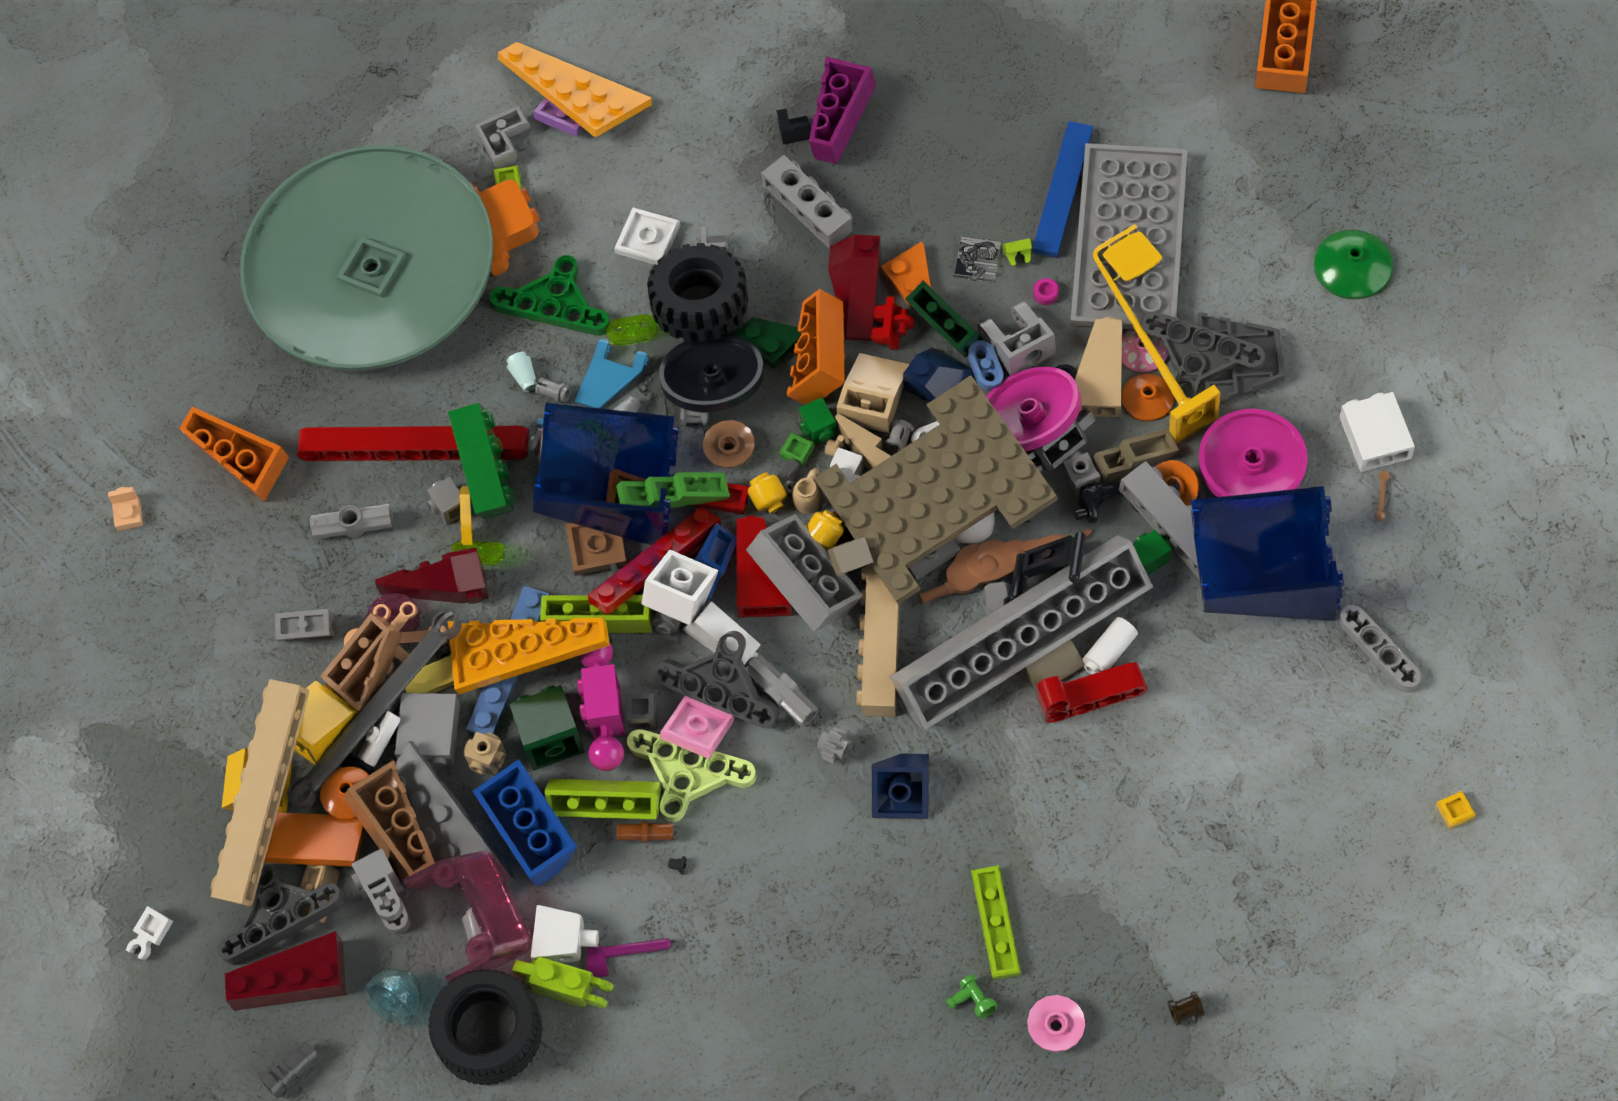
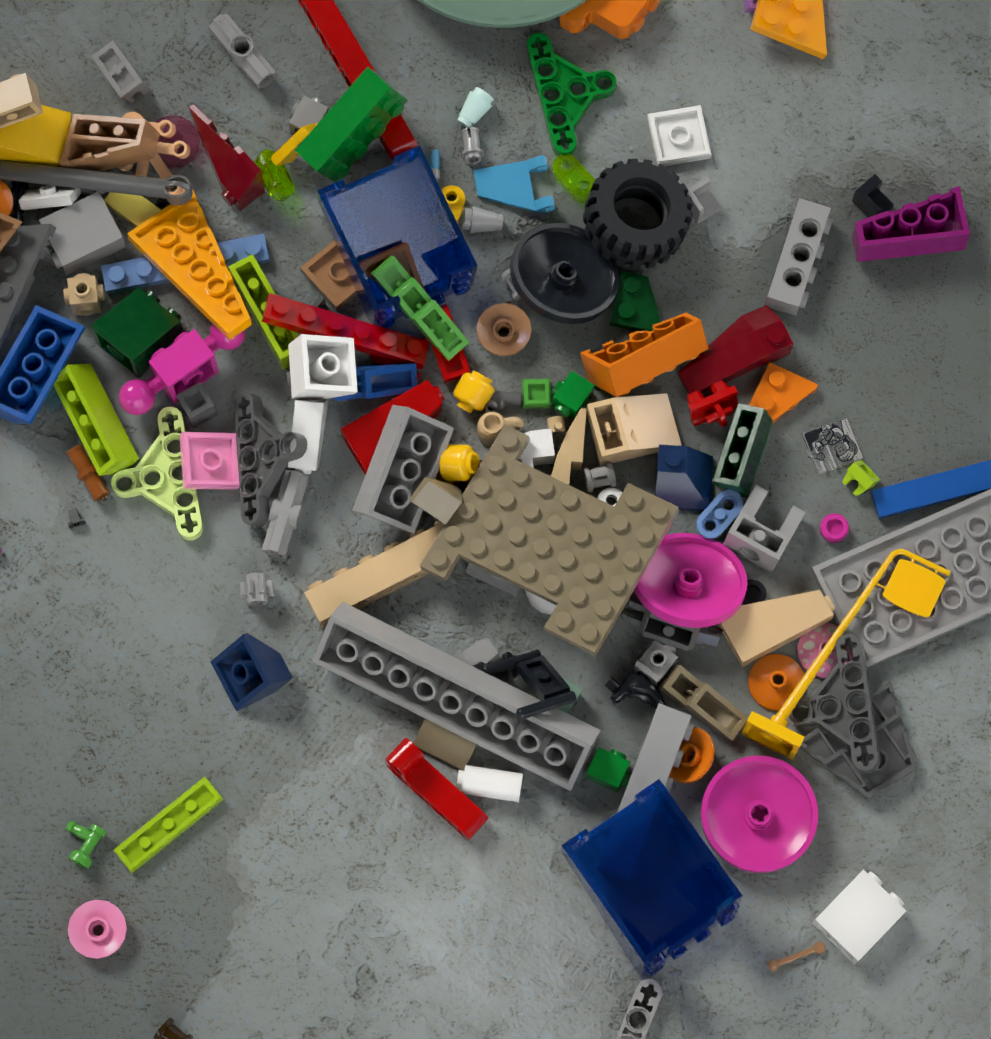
camera: 50 degrees right, 10 degrees up
(984, 564) = (521, 631): nougat piece -> none

